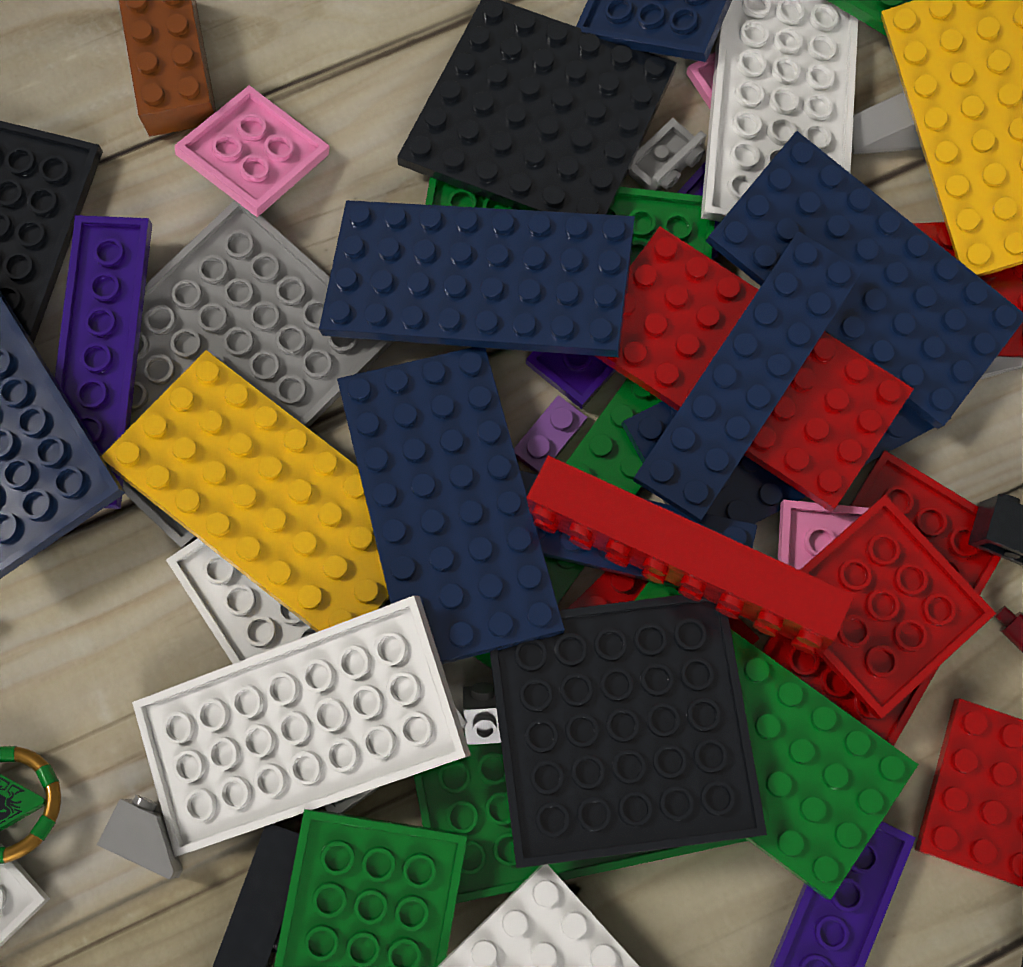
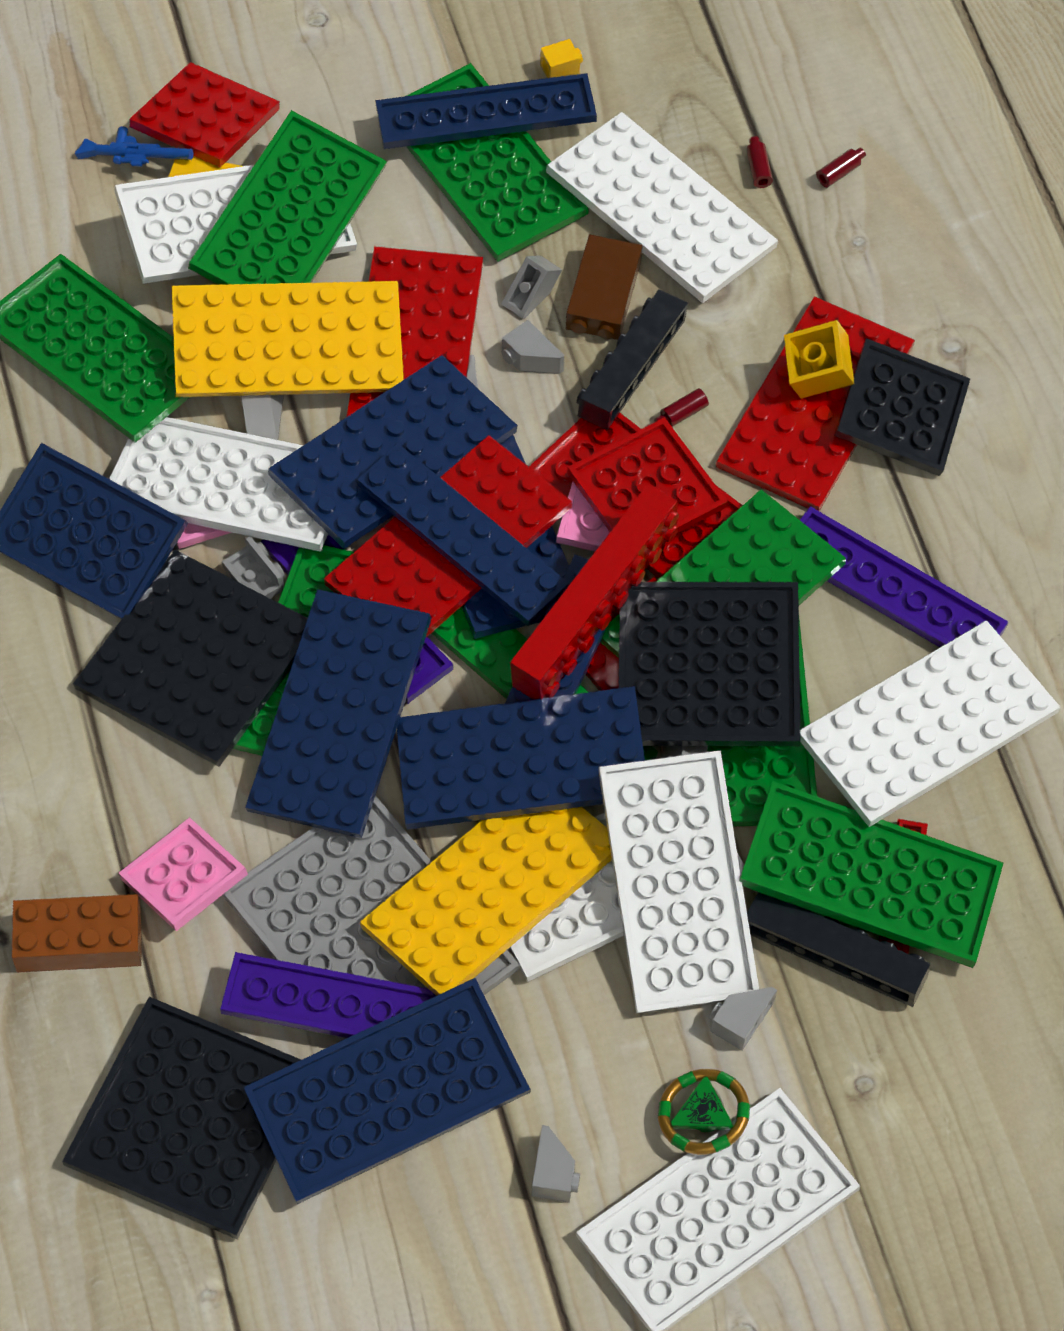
camera: 80 degrees left, 15 degrees down
(549, 434) = (467, 689): medium lavender plate -> none

